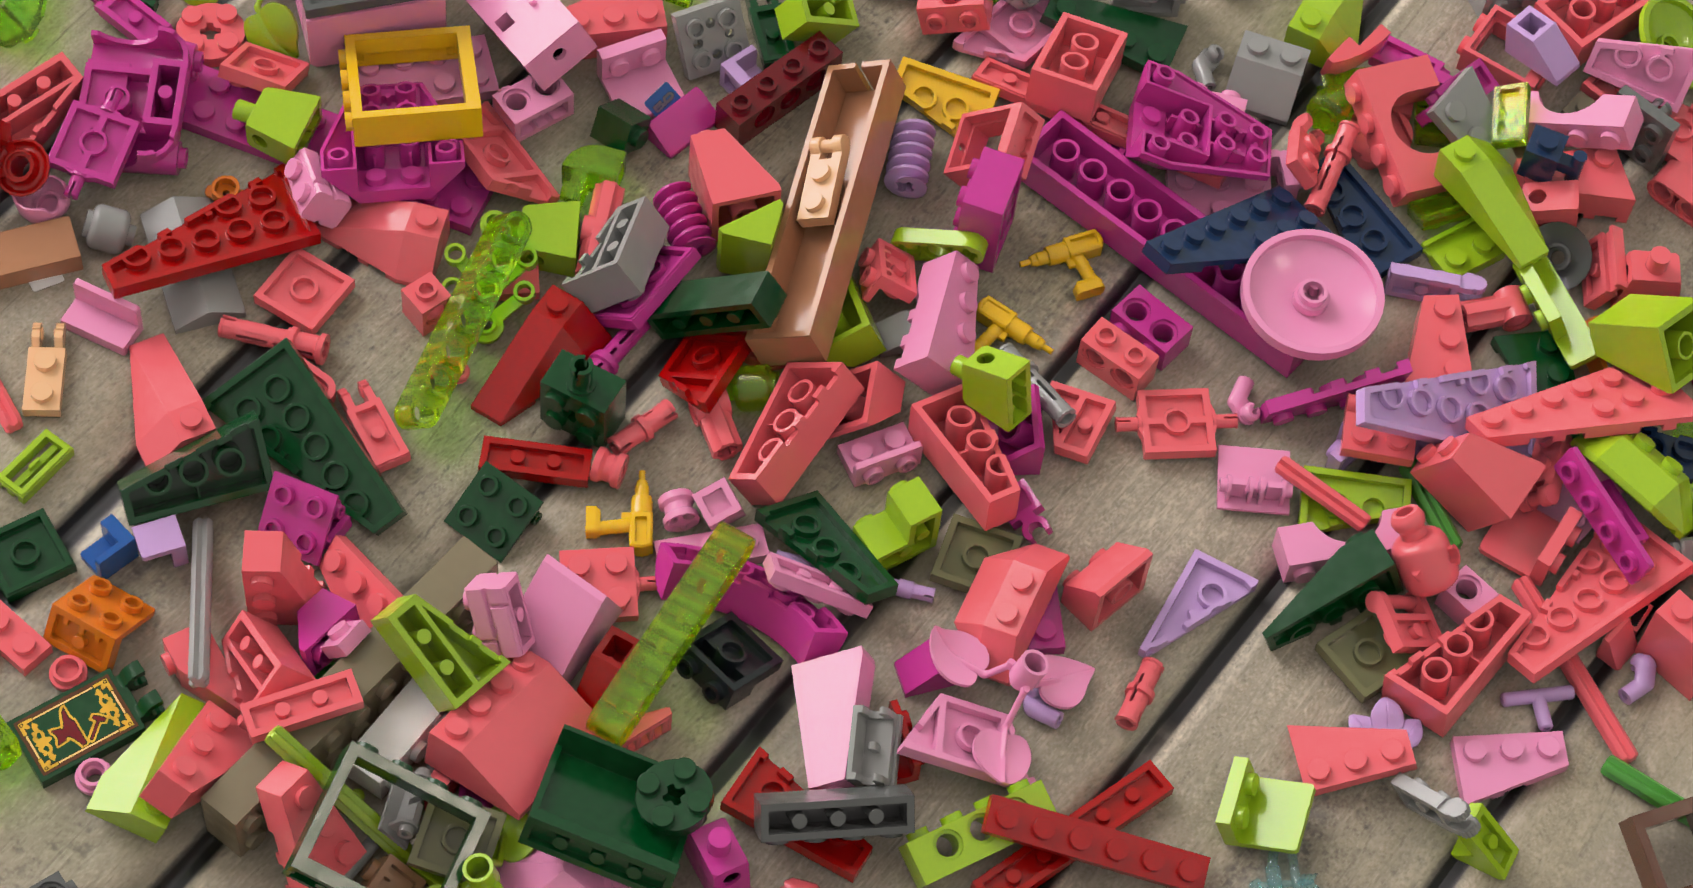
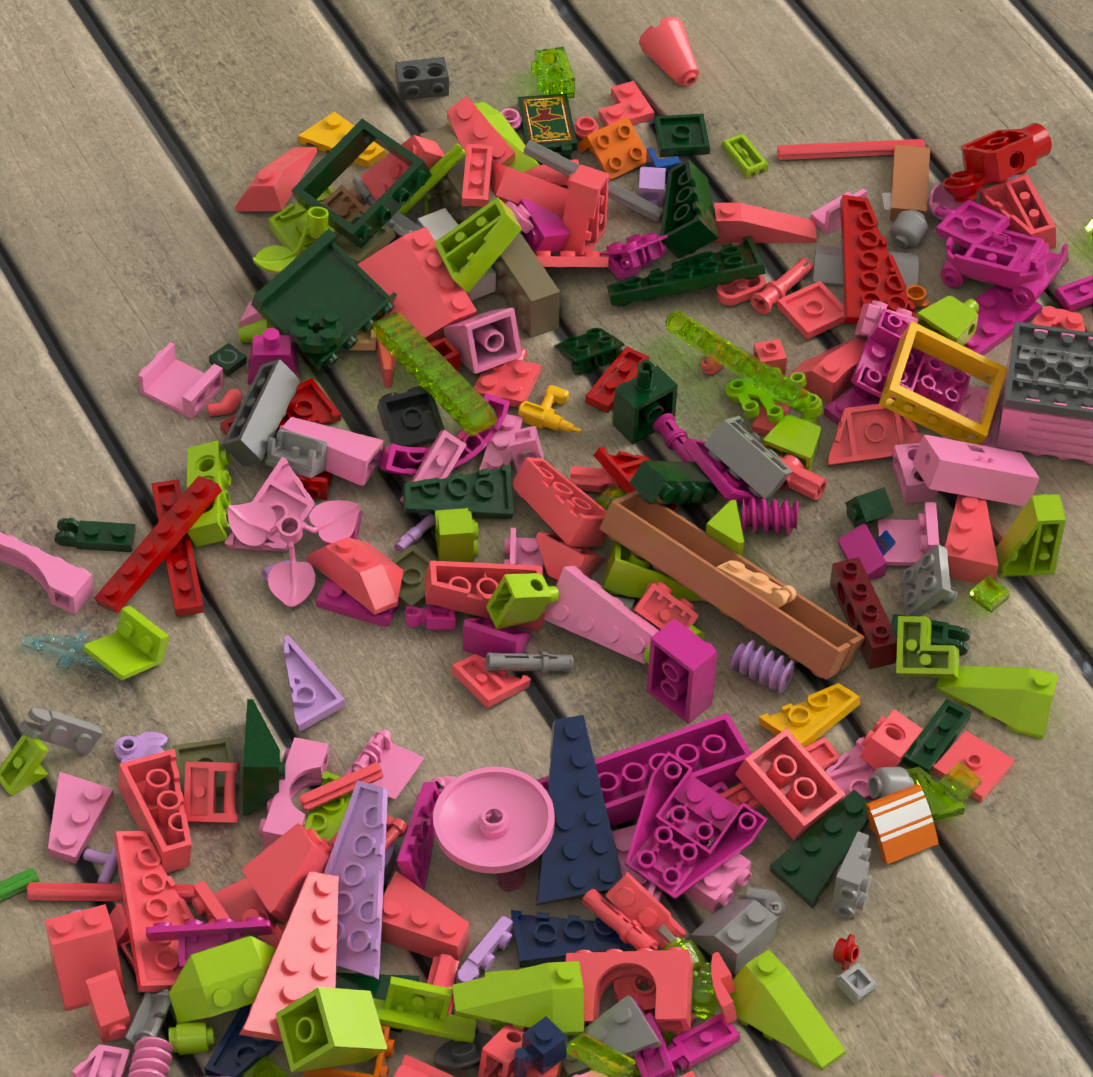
camera: 120 degrees right, 10 degrees down
(45, 374) = (814, 178): light nougat hinge -> none
(262, 68) = (997, 331): coral plate -> none
(374, 428) = (698, 308): coral hinge -> none
(499, 613) = (491, 289): bright pink brick -> none
(553, 325) = (700, 406): red wedge -> none
(590, 166) = (838, 482): clear neon green brick -> none
(609, 467) = (591, 412): coral wheel -> none
(642, 427) = (614, 440): coral pin -> none
(678, 510) = (544, 433): bright pink wheel -> none
(727, 178) = (788, 540): coral slope -> none
(739, 69) = (891, 597): lavender panel -> none
(1004, 323) = (592, 671): yellow piece -> none
(1019, 131) = (736, 698): coral window -> none
(1075, 252) = (637, 734): yellow piece -> none
(1106, 583) = (347, 632): coral slope -> none
(1117, 358) = (524, 719): coral brick -> none
(1139, 693) = (257, 626): coral pin -> none
(1155, 322) = (532, 753): dark pink brick -> none
(1176, 423) = (454, 737): coral plate -> none
(1349, 756) = (134, 715): coral wing -> none
(1423, 553) = (248, 806): coral piece -> none
(1470, 585) = (212, 856): bright pink brick -> none

